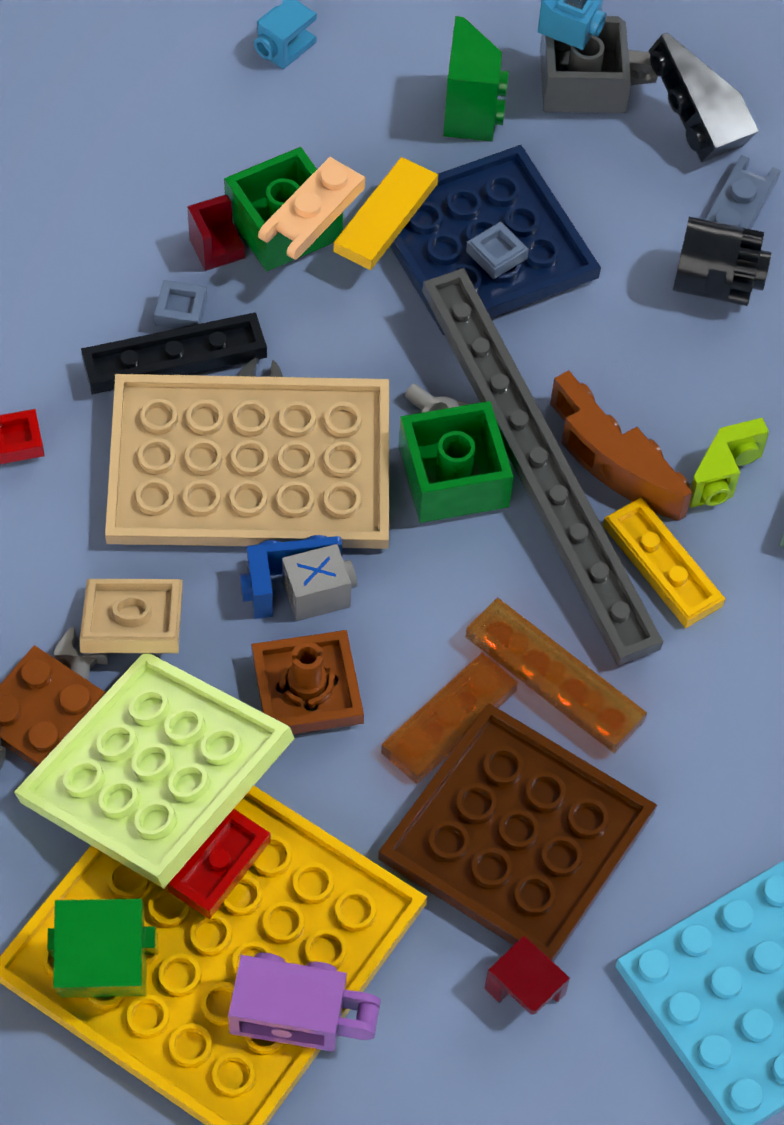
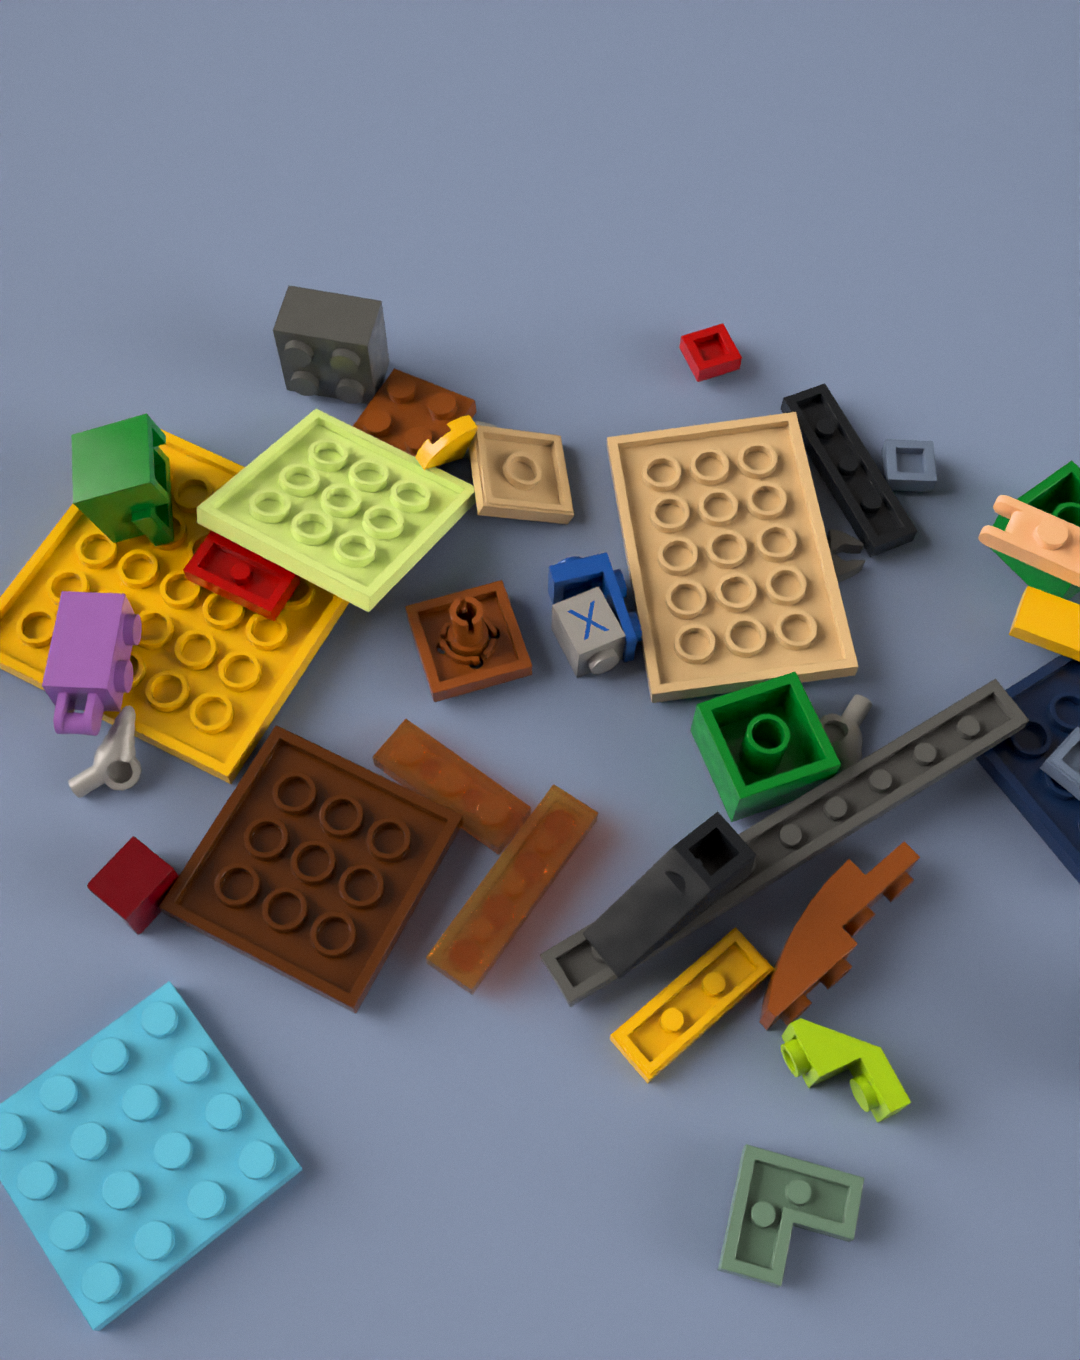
camera: 85 degrees right, 5 degrees up
(95, 664) = (450, 446): none -> yellow tile
(214, 233) = (1010, 473): dark red panel -> none
(398, 1005) = (113, 760): none -> light grey animal
(592, 537) = (671, 894): none -> black slope

